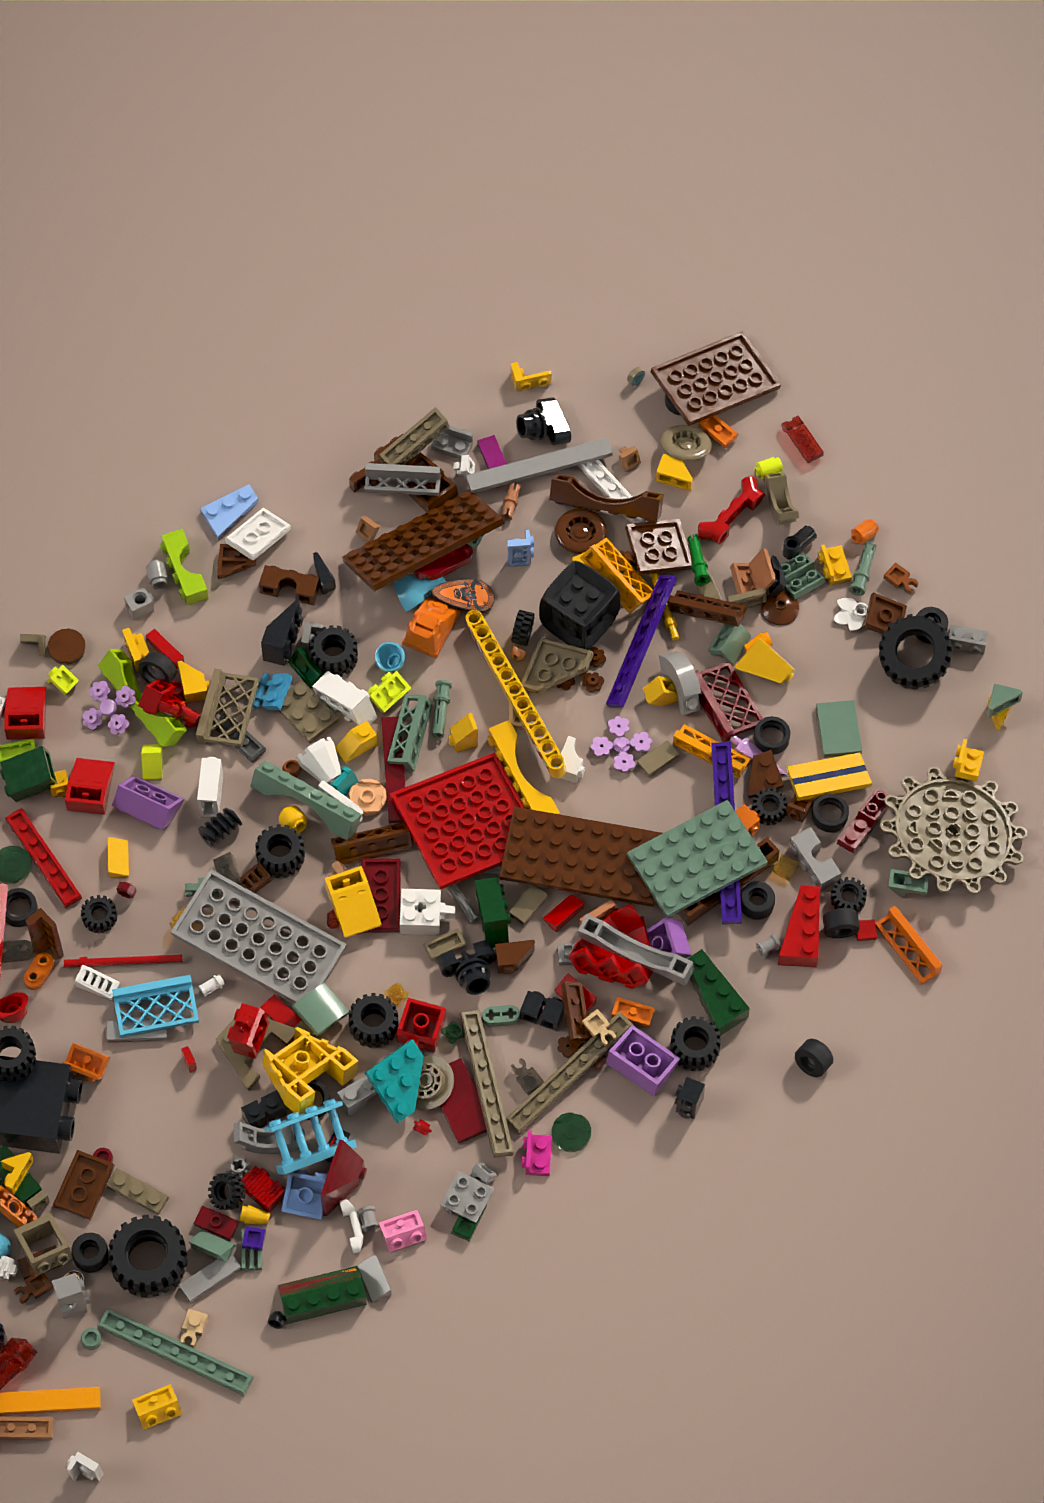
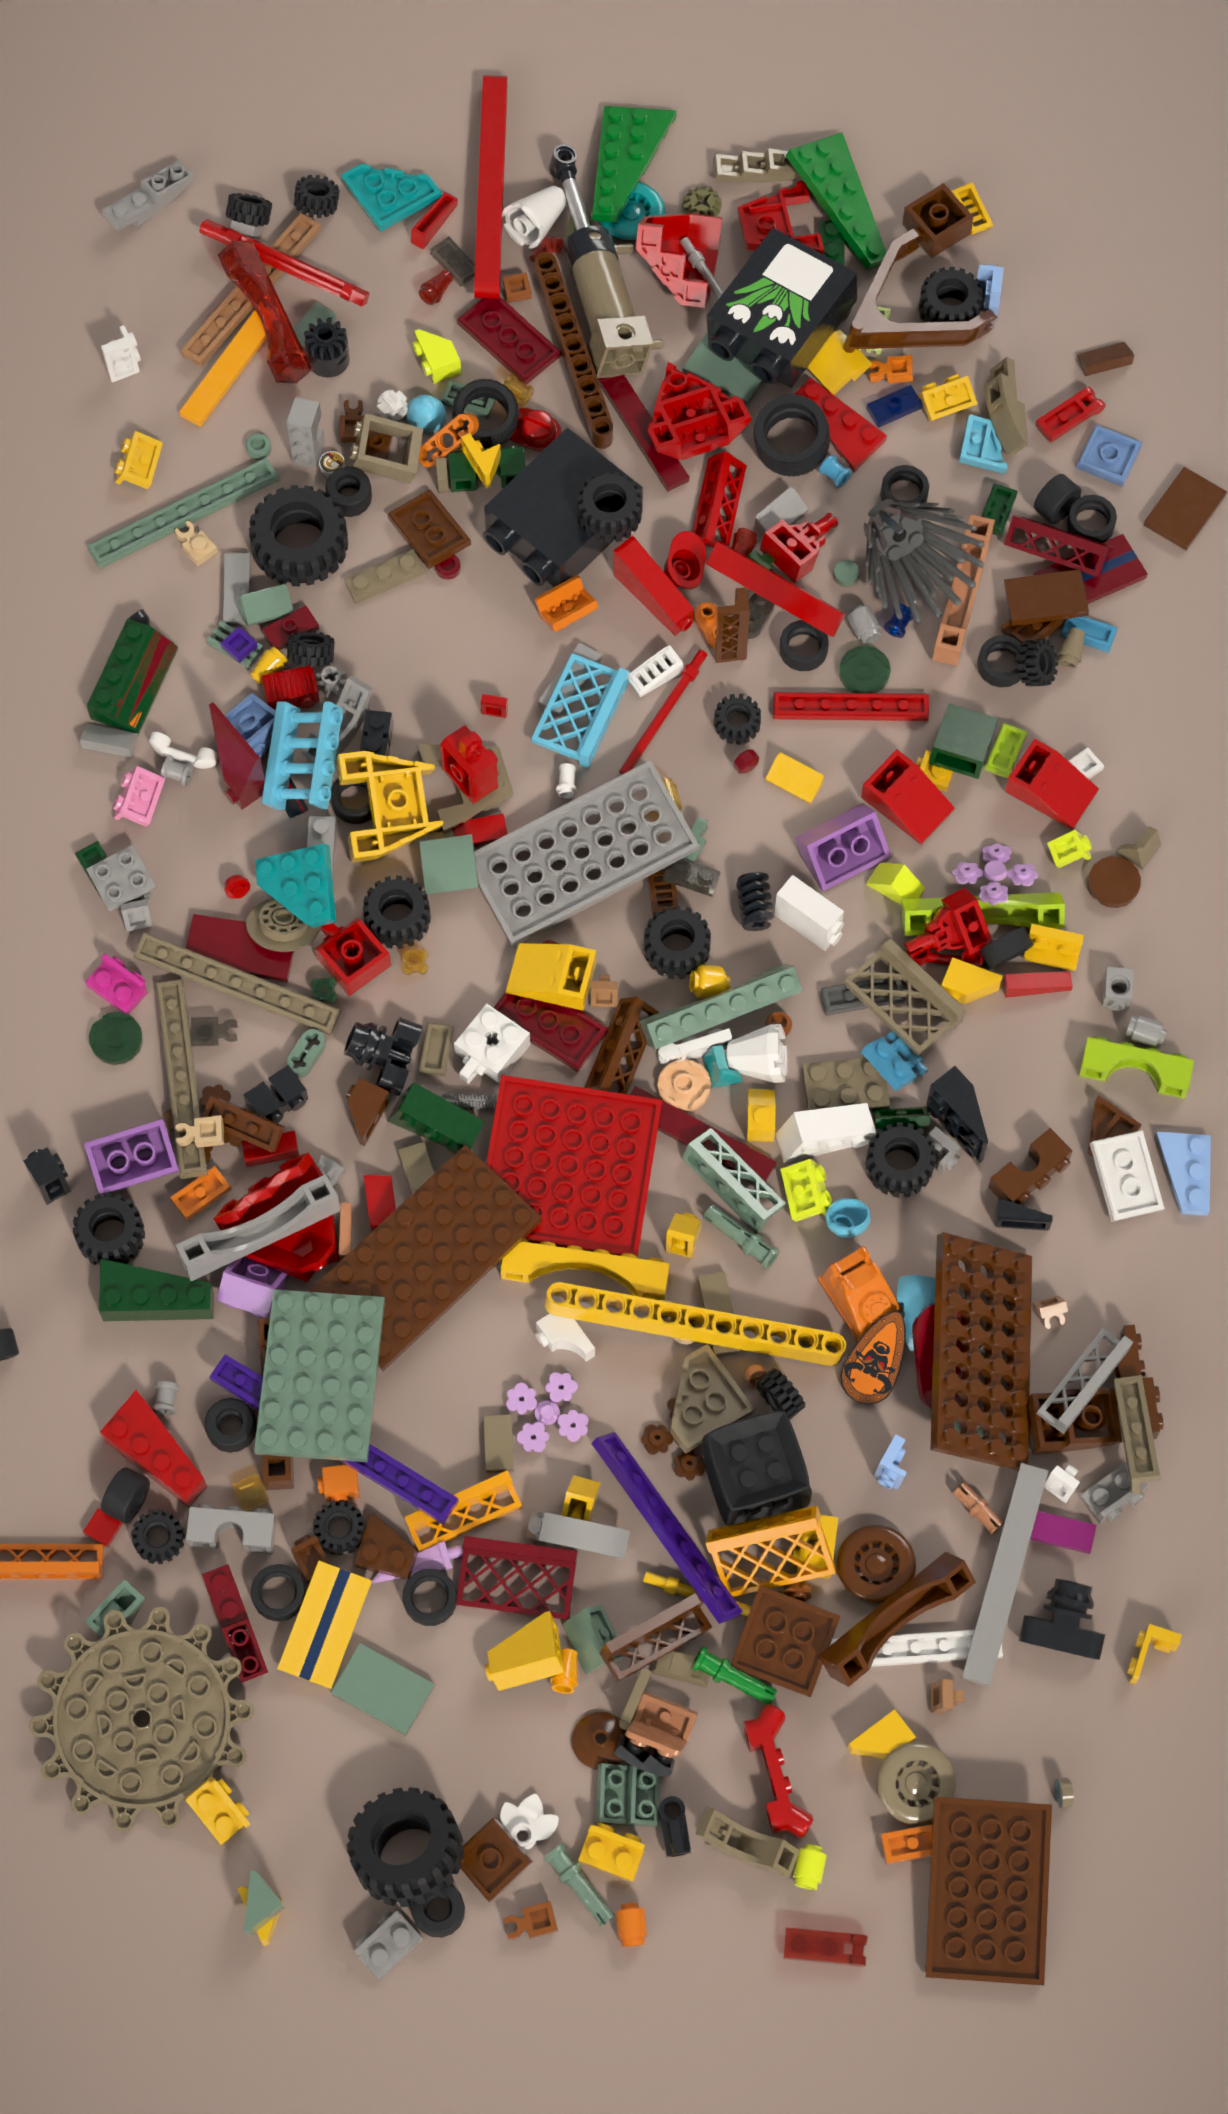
camera: 125 degrees right, 5 degrees up
(40, 1012) = (651, 586): none -> red slope
(488, 699) = (717, 1297): none -> dark tan tile

